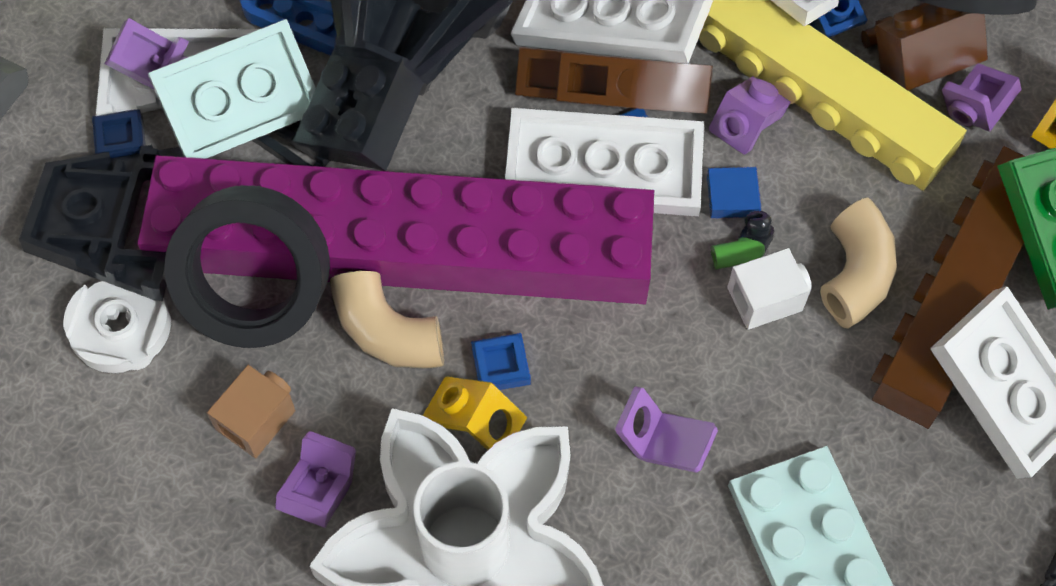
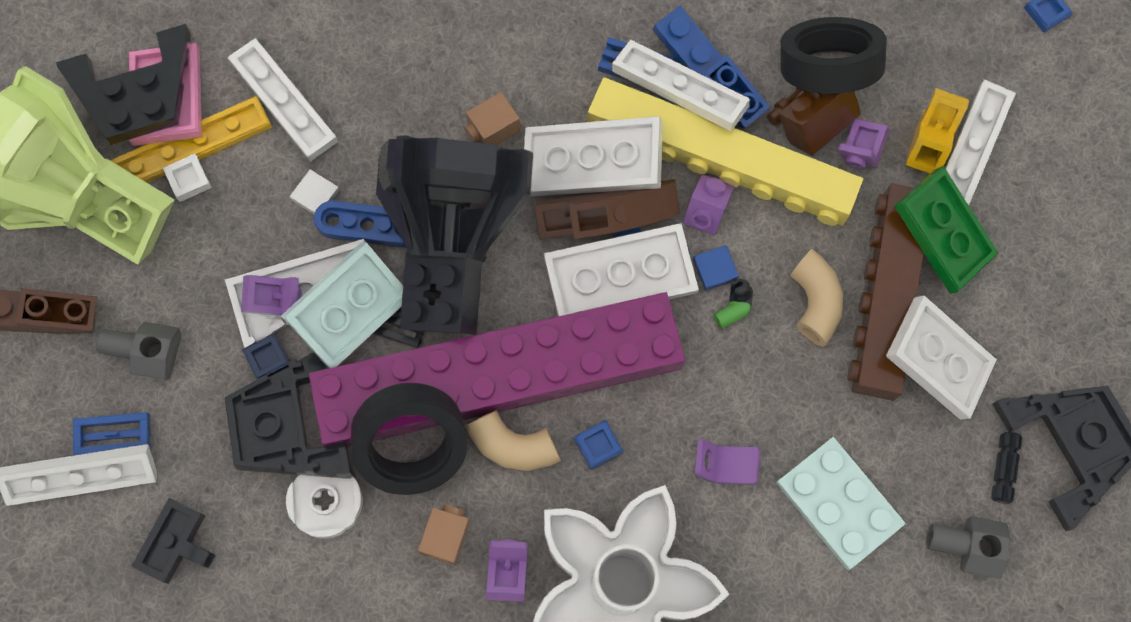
camera: 20 degrees left, 10 degrees up
(469, 406) = (591, 487): yellow bracket -> none
(769, 288) = (763, 335): white brick -> none

